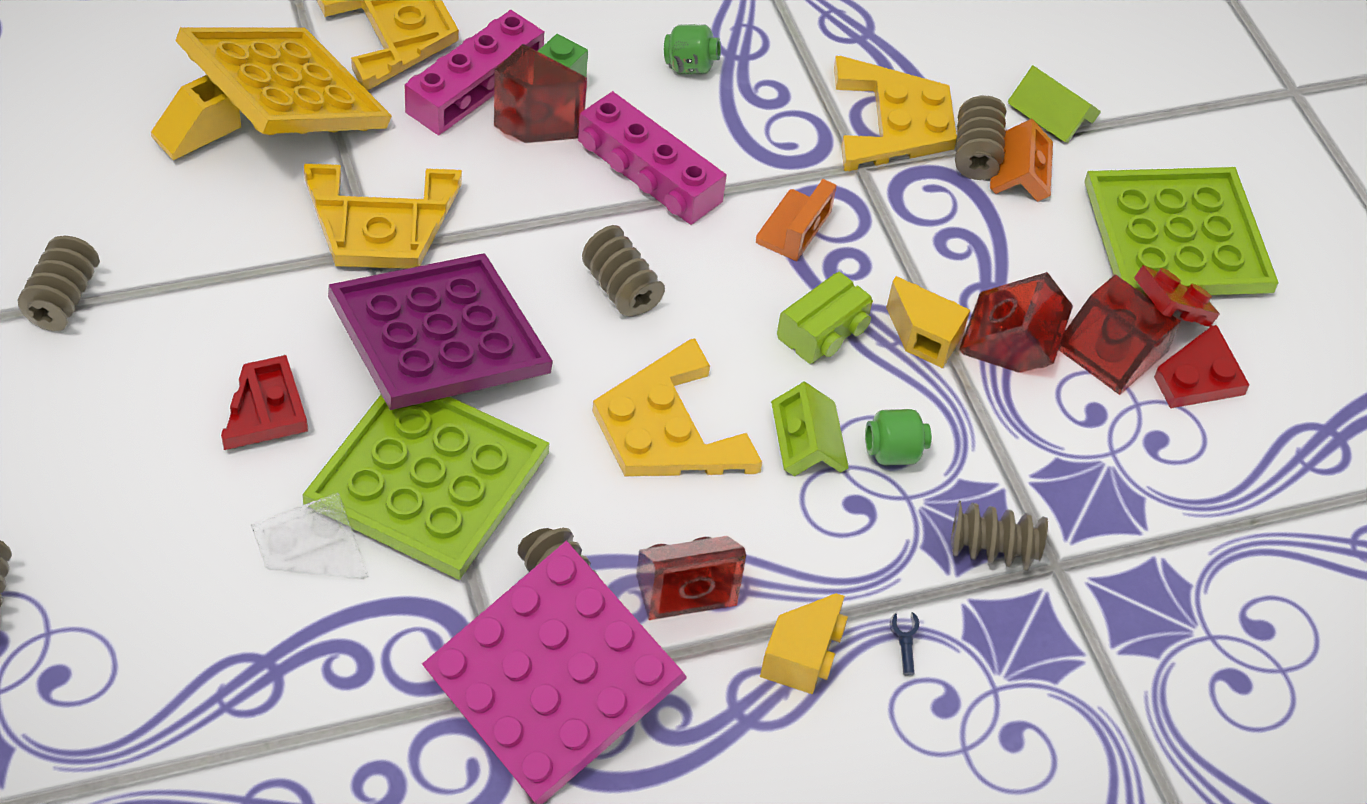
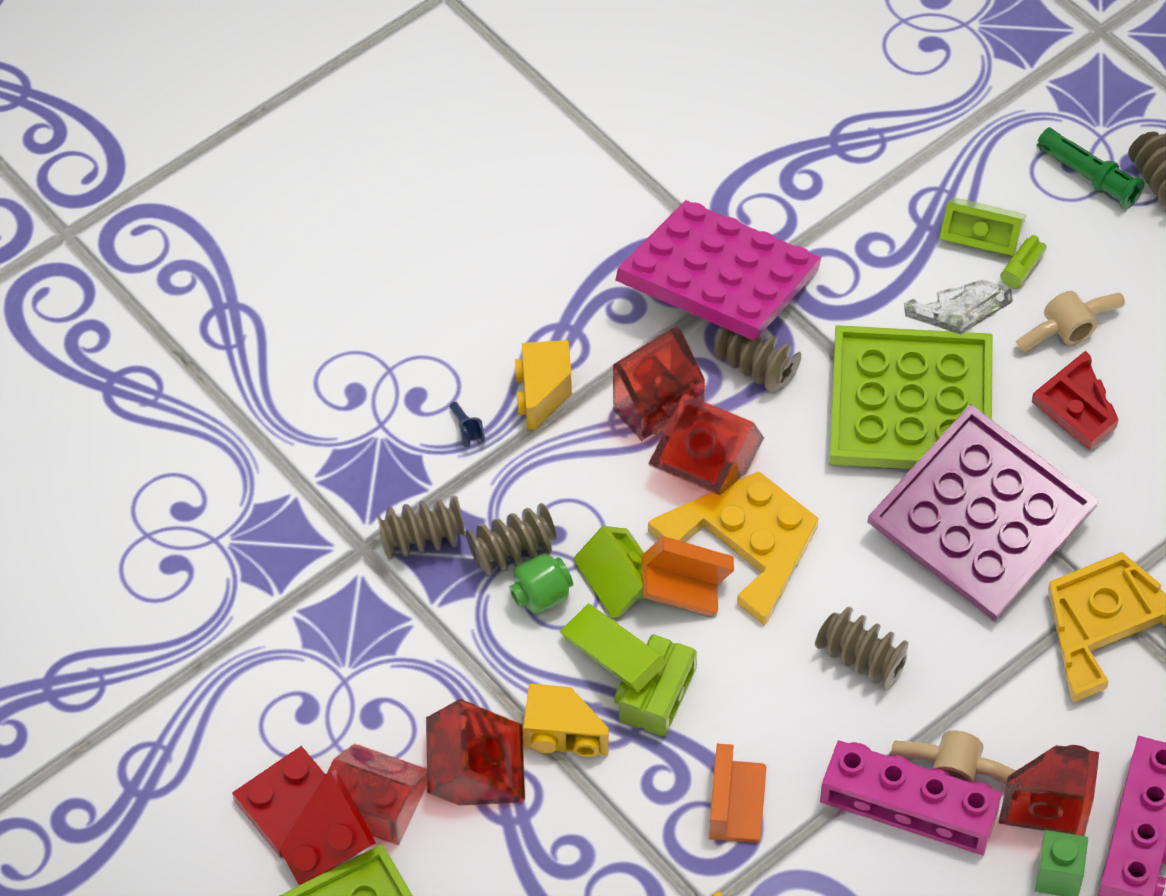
camera: 165 degrees right, 5 degrees up
(41, 627) = (1103, 174): none -> green pin
(205, 571) = (1023, 262): none -> lime piece
(208, 482) = (1070, 319): none -> tan piece
(213, 630) = (982, 226): none -> lime panel
(594, 168) = (957, 754): none -> tan piece
(670, 491) = (706, 446): none -> clear red slope
(755, 385) = (684, 575): none -> orange panel
(856, 347) = (613, 647): none -> lime tile
(910, 486) = (512, 538): none -> dark tan piece

